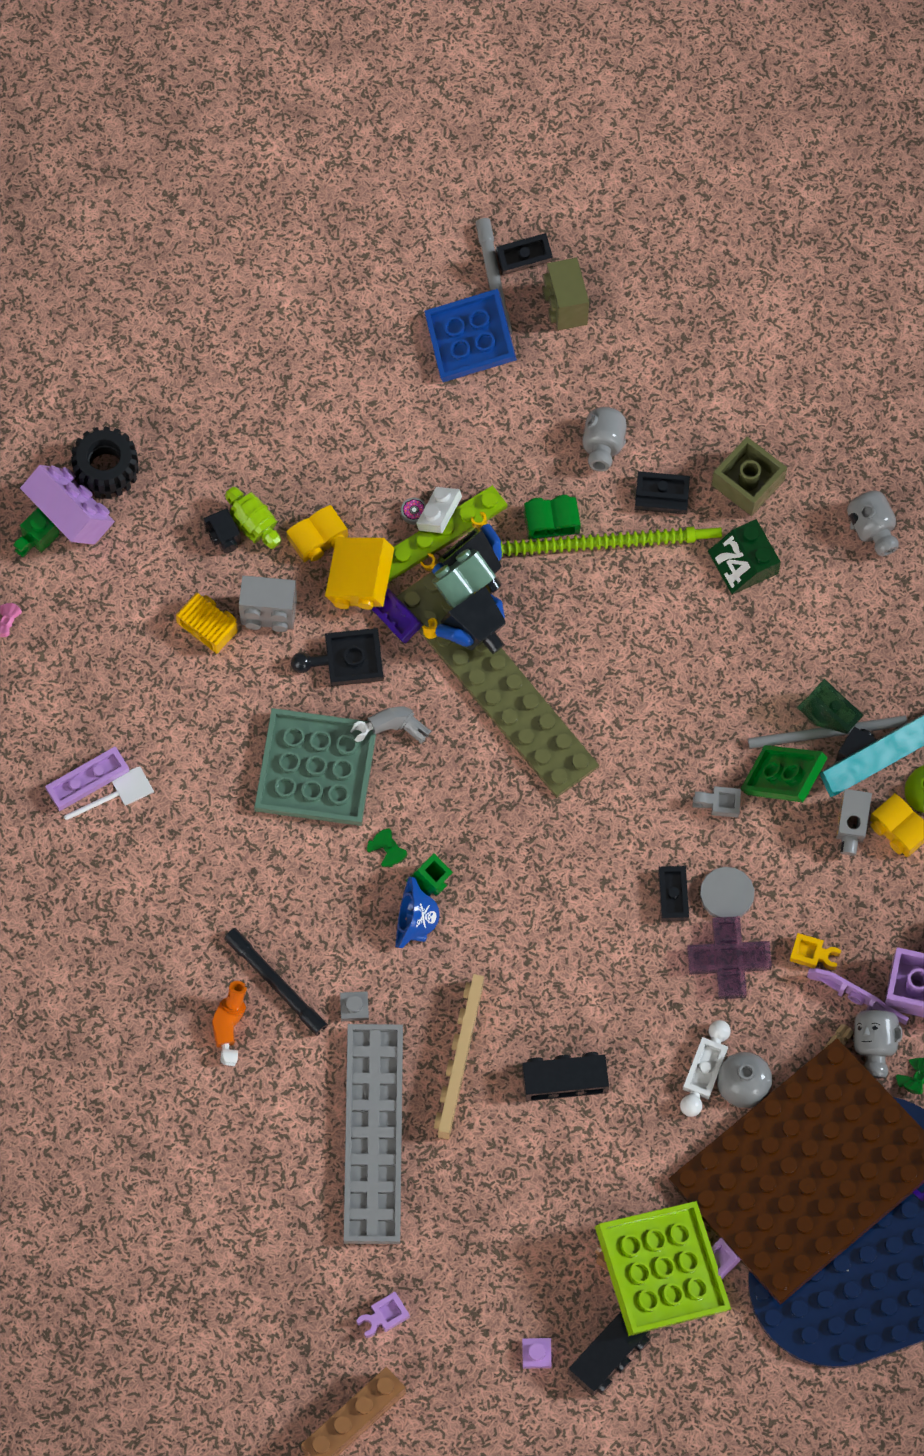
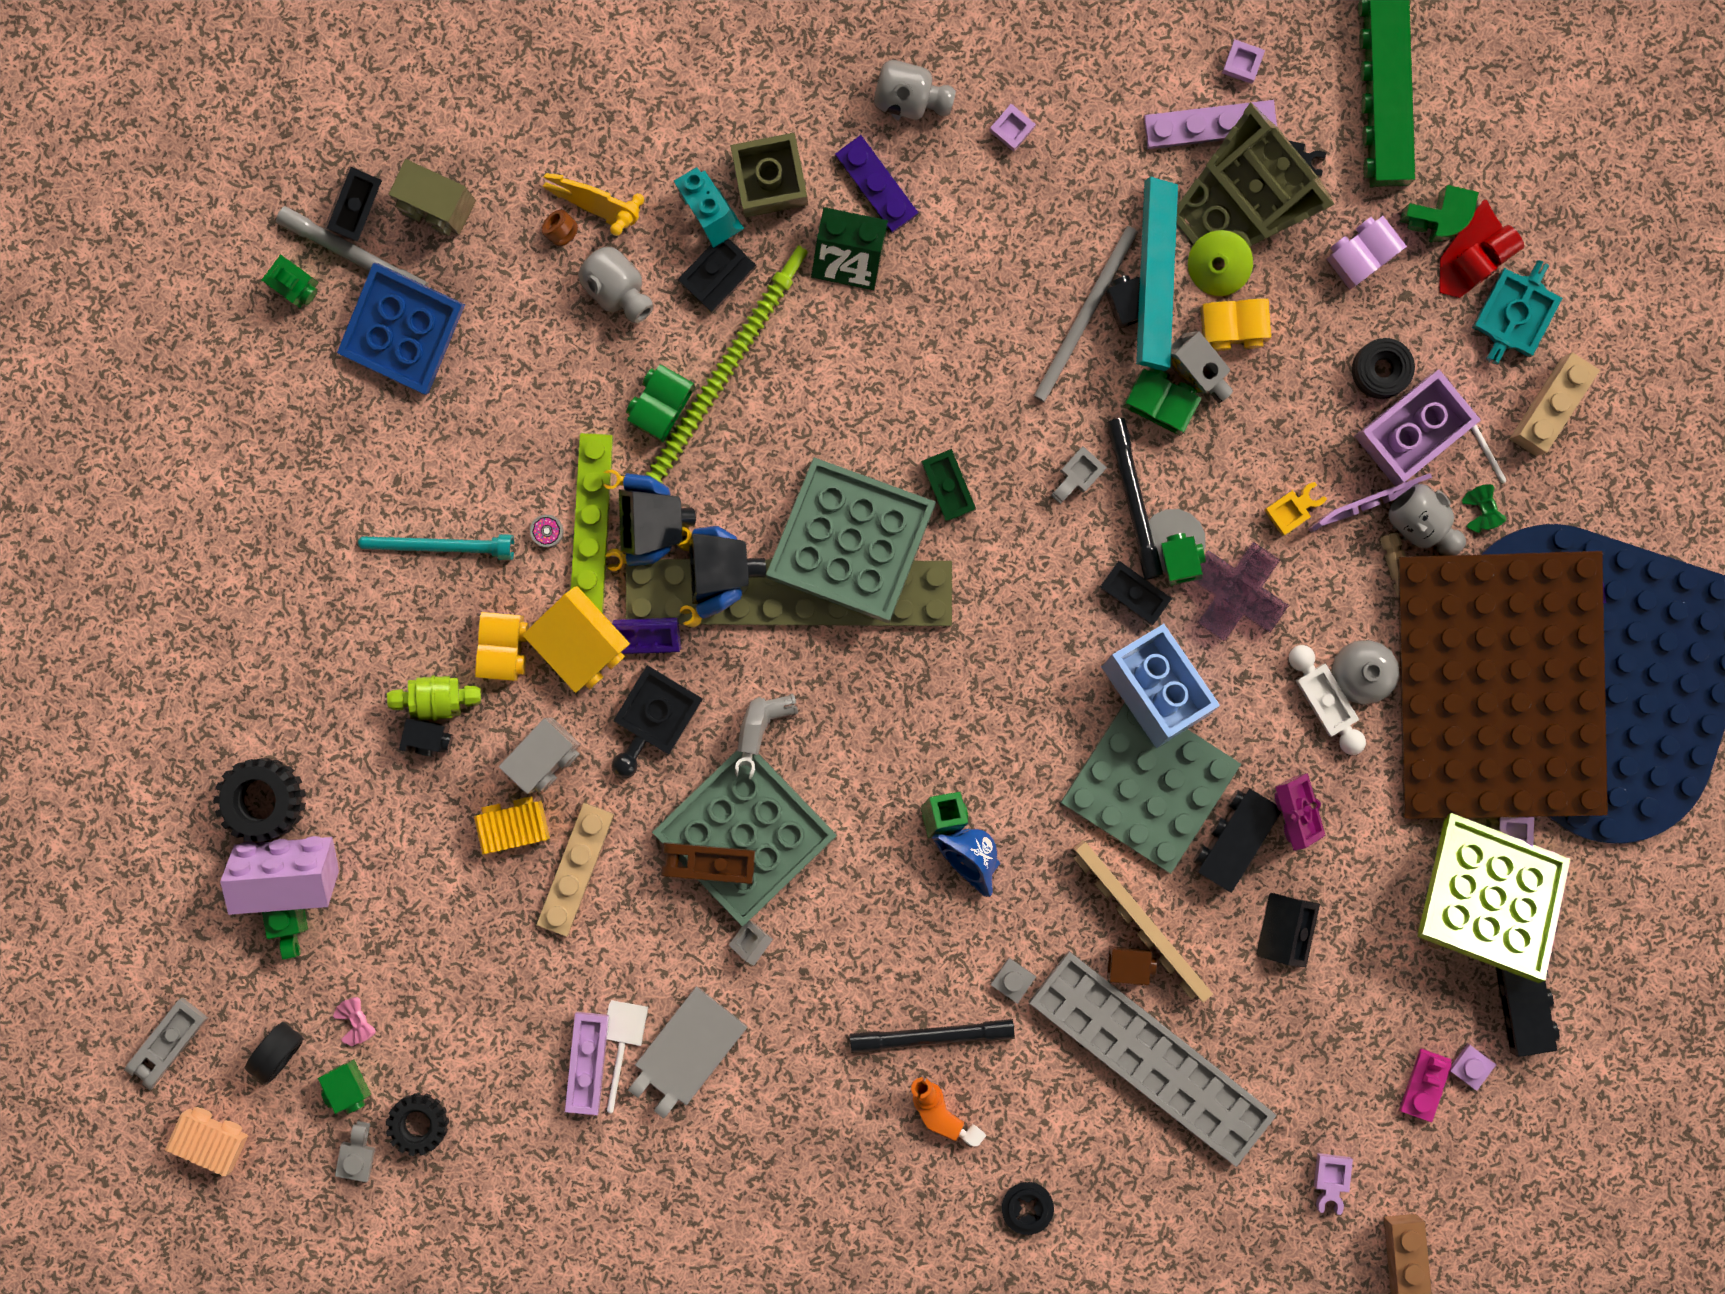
camera: 50 degrees left, 20 degrees up
(143, 835) = (687, 1050): none -> light grey tile
(200, 1118) = (1027, 1223): none -> black gear
(209, 682) = (575, 869): none -> tan plate
(247, 821) = (750, 942): none -> light grey plate
(280, 754) = (709, 863): none -> reddish brown plate
(379, 487) = (498, 546): none -> teal piece
(384, 840) = (868, 824): green piece -> none
(425, 1071) = (1130, 965): none -> reddish brown brick
(439, 510) = (567, 507): white plate -> none
(446, 254) = (291, 282): none -> green brick
(463, 577) = (667, 547): sand green brick -> none
(499, 1331) = (1426, 1085): none -> dark pink plate
(532, 1159) = (1288, 930): none -> black panel
(557, 997) = (1150, 794): none -> sand green plate
(560, 690) = (851, 540): none -> sand green plate
(611, 379) = (559, 228): none -> dark orange tile
(615, 1098) = (1302, 822): none -> magenta plate
(625, 946) = (1160, 685): none -> light blue brick
(645, 727) = (948, 485): none -> dark green plate
(646, 392) = (597, 202): none -> yellow piece
(698, 454) = (708, 206): none -> teal window
(707, 877) = (1147, 550): none -> black piece
(718, 900) = (1182, 558): none -> green brick
(784, 773) = (1106, 395): green plate -> none
(799, 546) = (876, 183): none -> dark purple plate
(812, 819) = (1162, 401): none -> green brick
(829, 708) = (1071, 295): clear green slope -> none
(905, 599) = (1012, 127): none -> lavender plate

